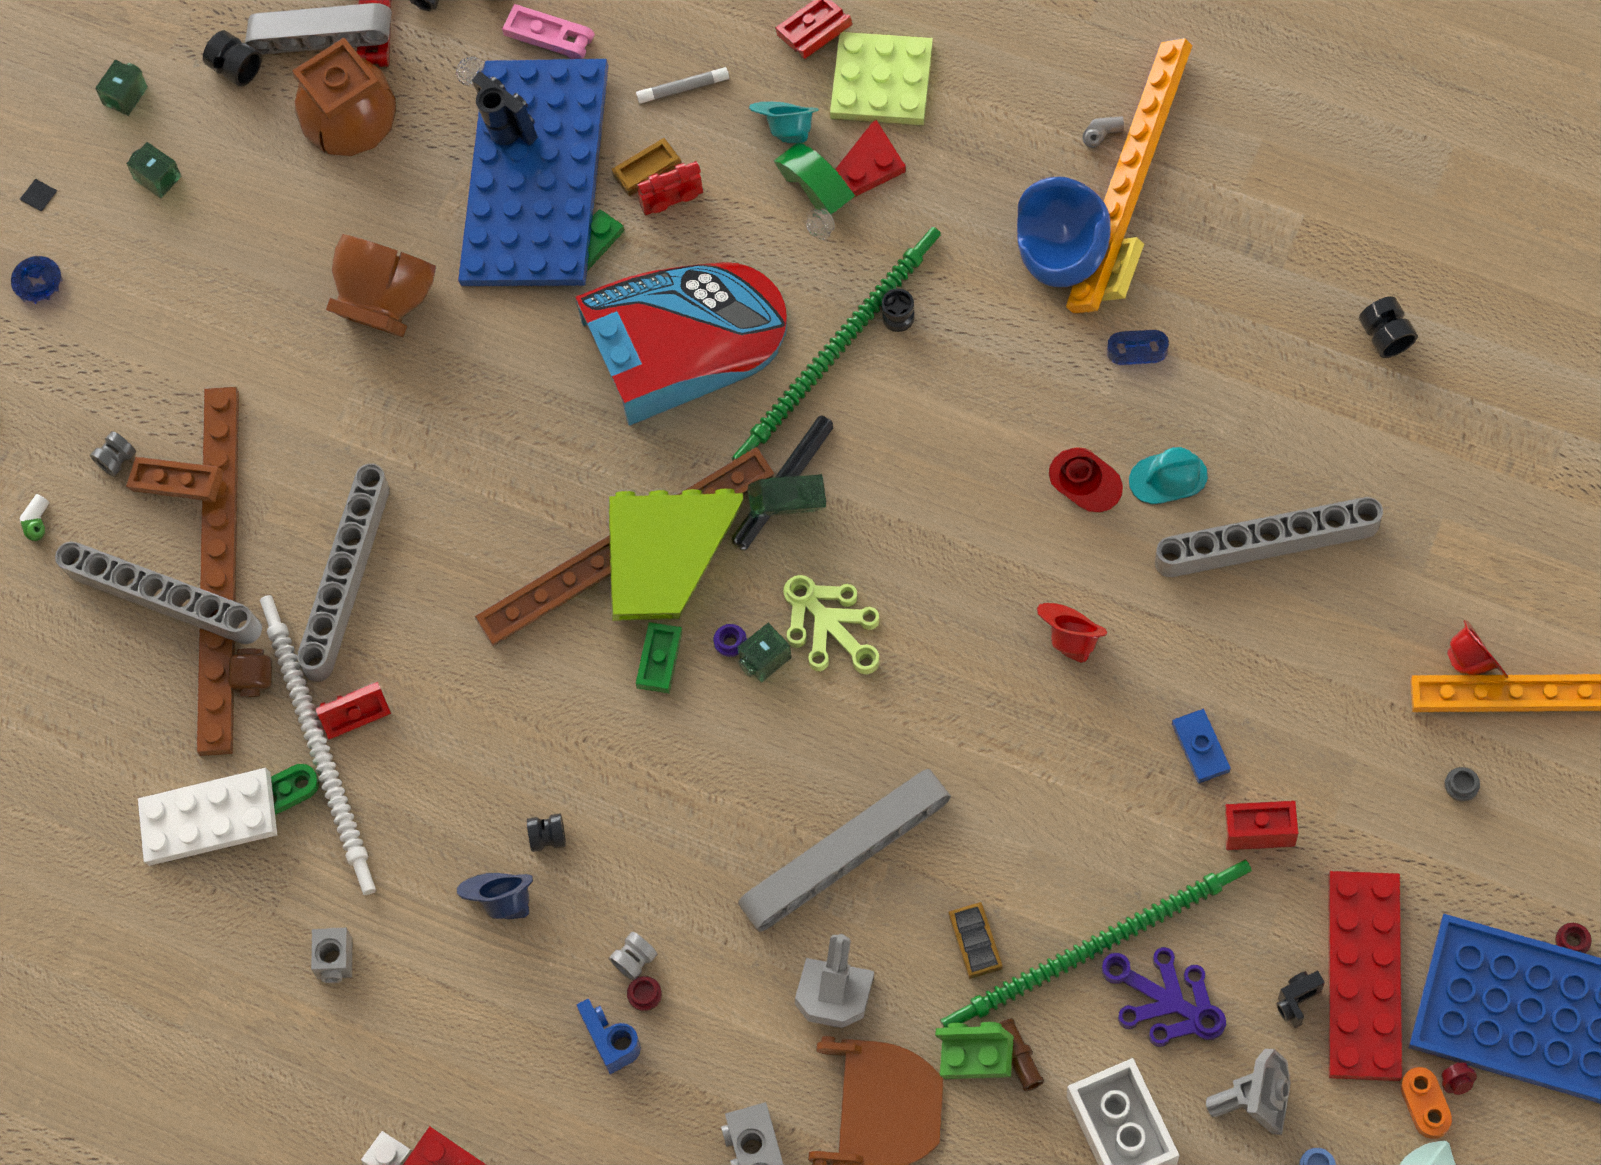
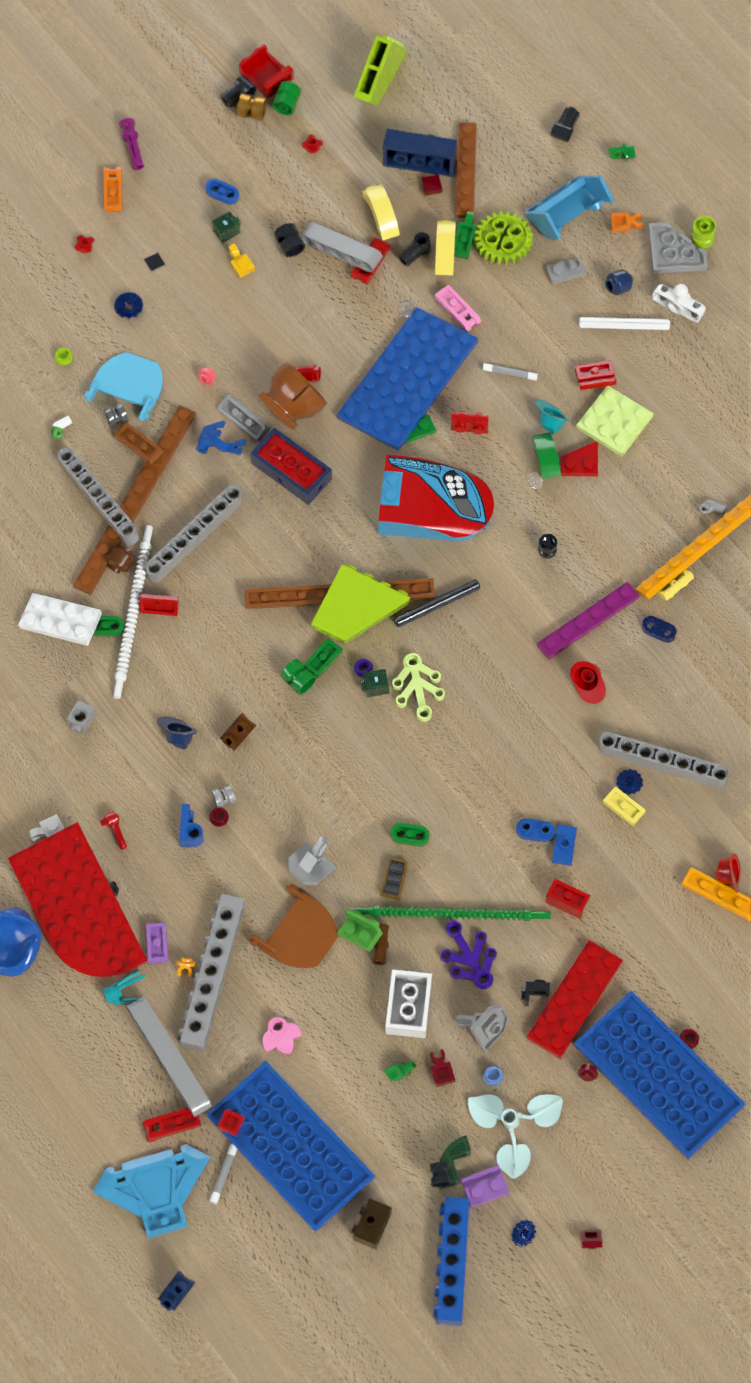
camera: 25 degrees right, 0 degrees up
(85, 37) = (223, 191): none -> blue plate
(104, 390) = (130, 380): none -> medium azure piece
(153, 169) = (217, 278): clear green brick -> none
(175, 131) = (241, 263): none -> yellow plate
(222, 323) = (206, 376): none -> coral plate
(283, 415) = (209, 438): none -> blue piece
(316, 356) = (244, 417): none -> light grey slope
(343, 101) = (332, 292): dark orange plate -> none
(383, 234) = (310, 373): none -> red cone
(436, 391) = (291, 466): none -> brick
(477, 1092) = (112, 820): none -> red piece
(503, 113) = (404, 340): black plate -> none
(546, 832) = (217, 714): black wheel -> none
(596, 842) = (237, 732): none -> reddish brown hips
(643, 707) = (300, 678): none -> green wheel
(654, 159) = (469, 404): pearl gold tile -> none
(787, 495) = (432, 610): clear green brick -> none
(844, 850) = (356, 800): light grey beam -> none
(911, 259) = (571, 523): green hose -> none
(956, 856) = (410, 833): none -> green plate
(1024, 390) = (587, 620): none -> magenta plate
(1062, 231) = (654, 549): blue piece -> none
(1071, 630) = (534, 752): red piece -> none
(1145, 748) = (535, 830): none -> blue plate
(1168, 476) = (633, 703): teal piece -> none
(1236, 597) = (629, 781): none -> clear blue piece
(1254, 638) = (624, 806): none -> light yellow plate
(1426, 1101) = (565, 1075): orange plate -> none
(1462, 784) = (683, 934): dark grey plate -> none

